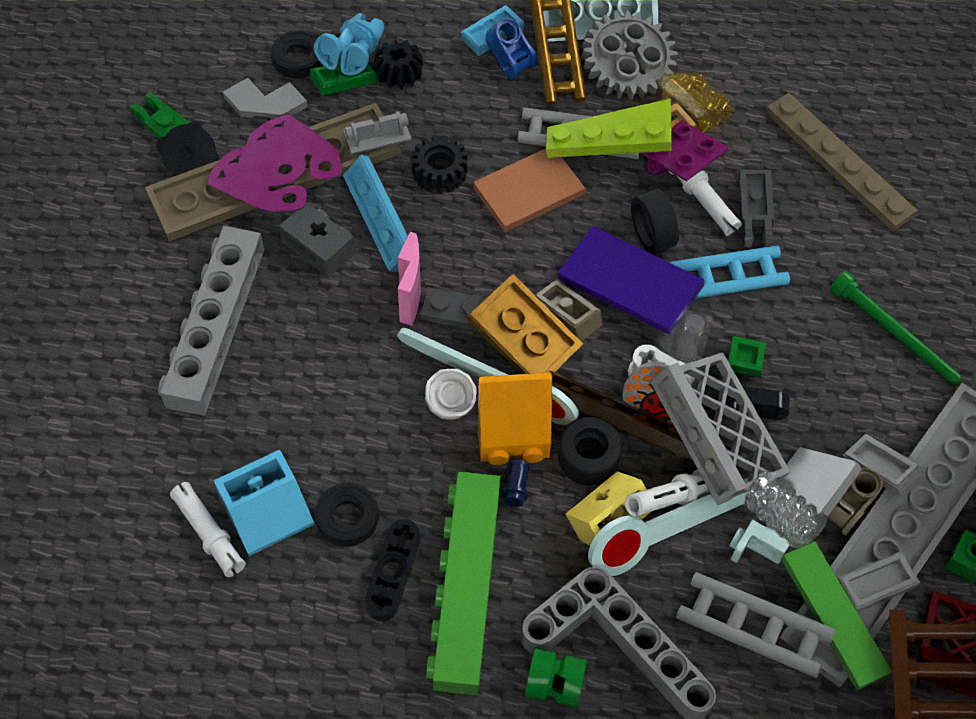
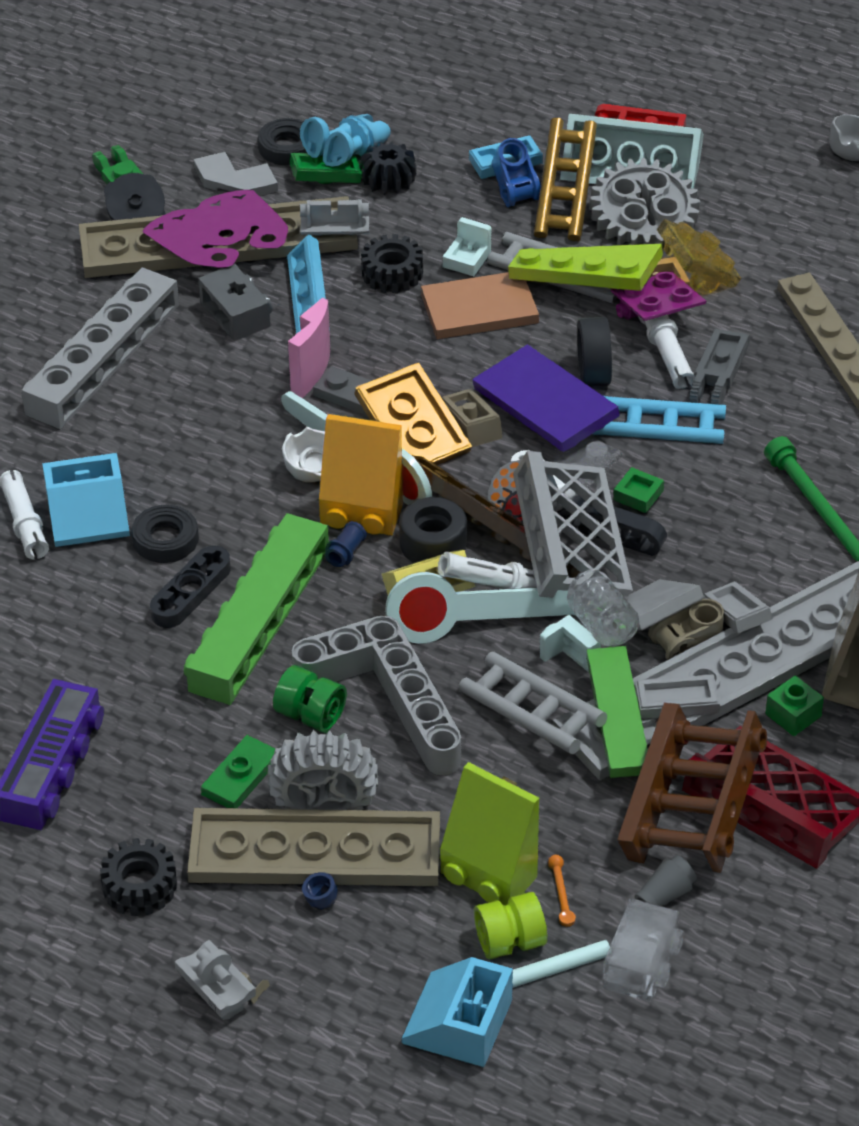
camera: 20 degrees right, 15 degrees down
(500, 133) = (469, 248): none -> light aqua bracket

